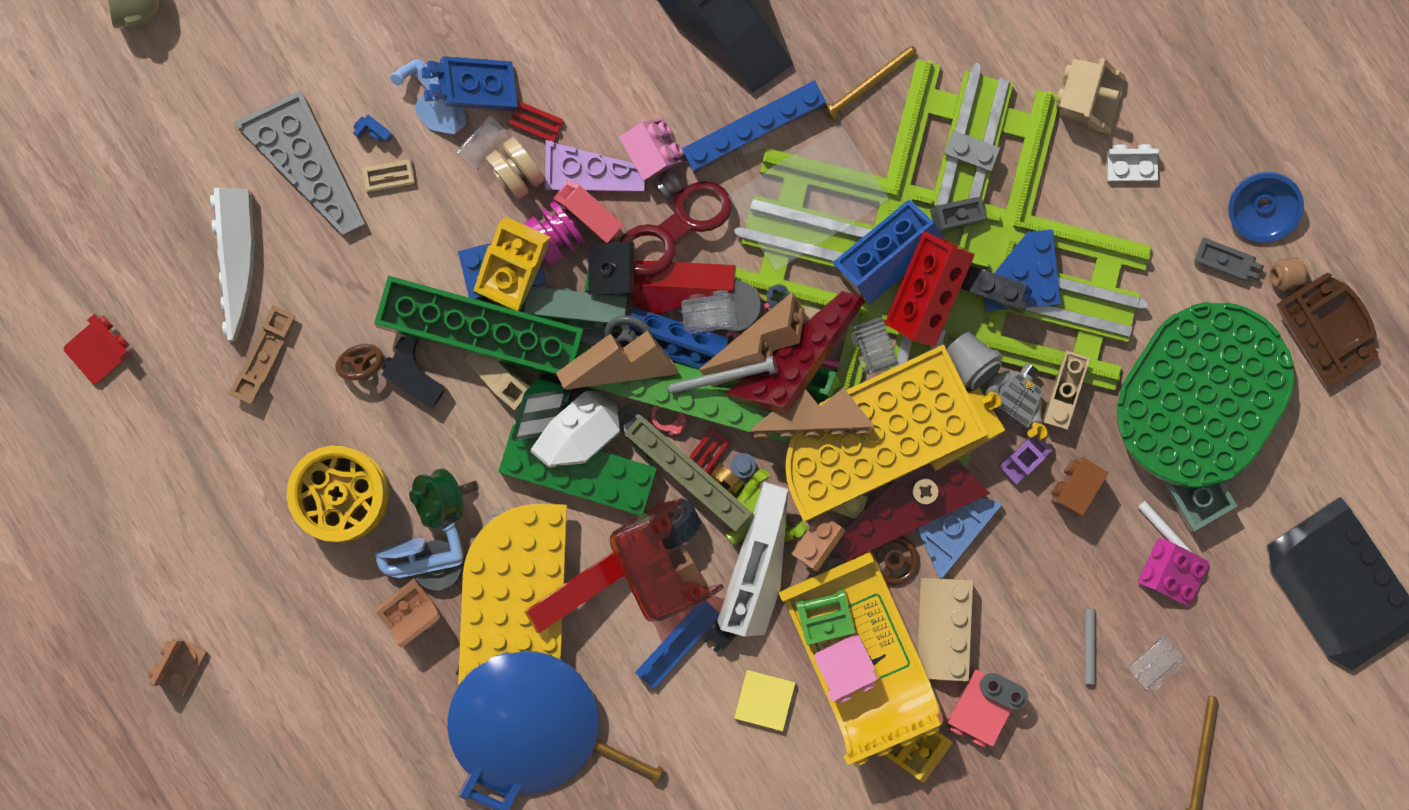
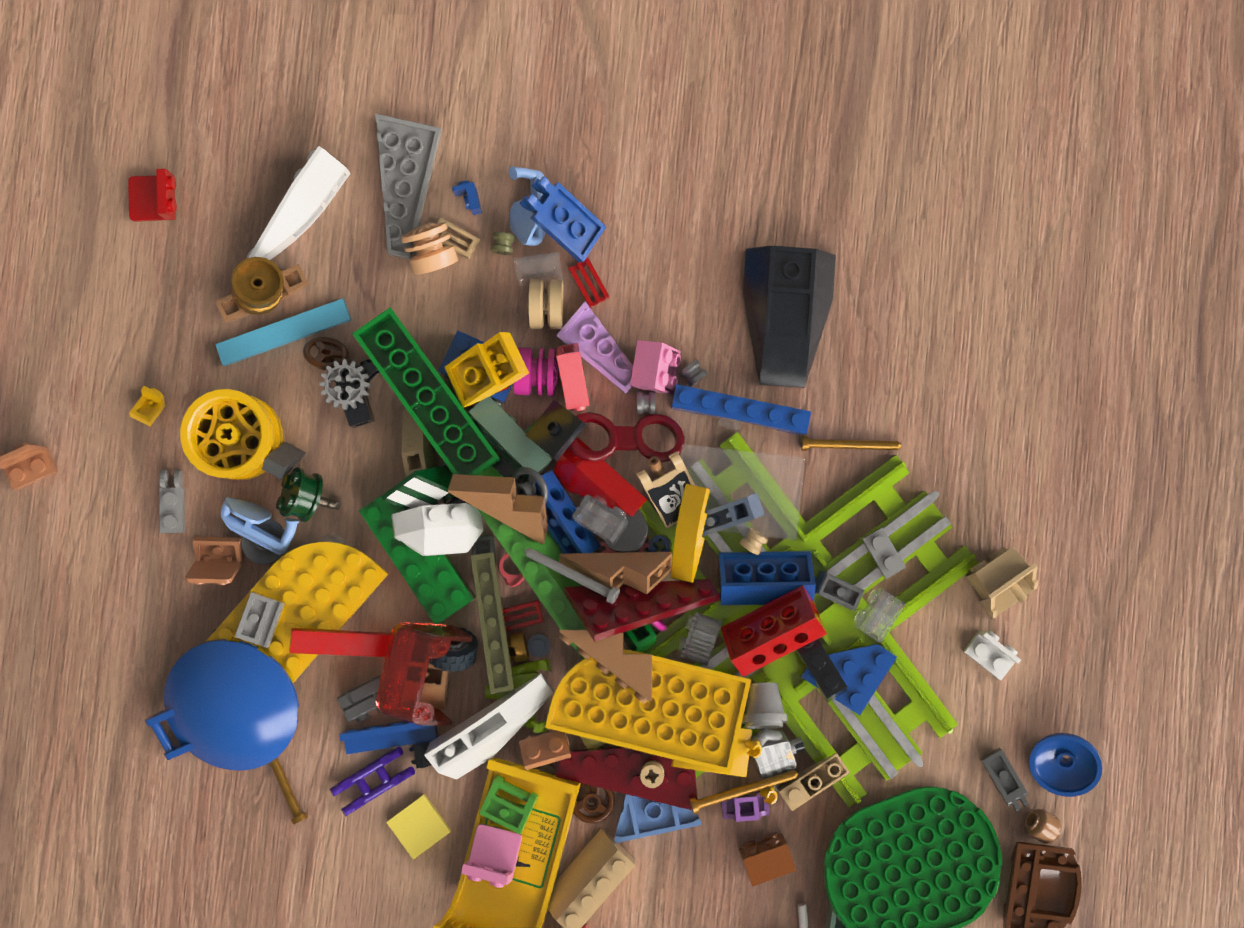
camera: 40 degrees right, 0 degrees up
(242, 530) = (148, 406): none -> yellow bracket
(255, 350) = (257, 272): none -> pearl gold wheel
(306, 375) = (283, 332): none -> medium azure tile
(330, 599) = (171, 503): none -> light grey hinge
(372, 197) = (429, 248): none -> light nougat wheel
(398, 482) = (282, 460): none -> dark grey slope
(402, 359) = (335, 394): none -> light grey gear
(434, 147) = (502, 243): none -> olive wheel
(491, 627) = (259, 619): none -> light grey plate
(630, 630) = (360, 700): none -> dark grey brick
(688, 127) = (693, 373): none -> flat silver wheel
(690, 678) = (368, 794): none -> dark purple piece
(725, 233) = (656, 466): none -> medium nougat arm
(753, 242) = (667, 490): none -> flag
(793, 264) = (689, 533): none -> yellow slope
(813, 226) = (732, 514): none -> sand blue slope
(853, 228) = (753, 541): none -> tan wheel
(982, 487) = (741, 790): none -> pearl gold bar
(1009, 206) = (879, 614): none -> clear brick

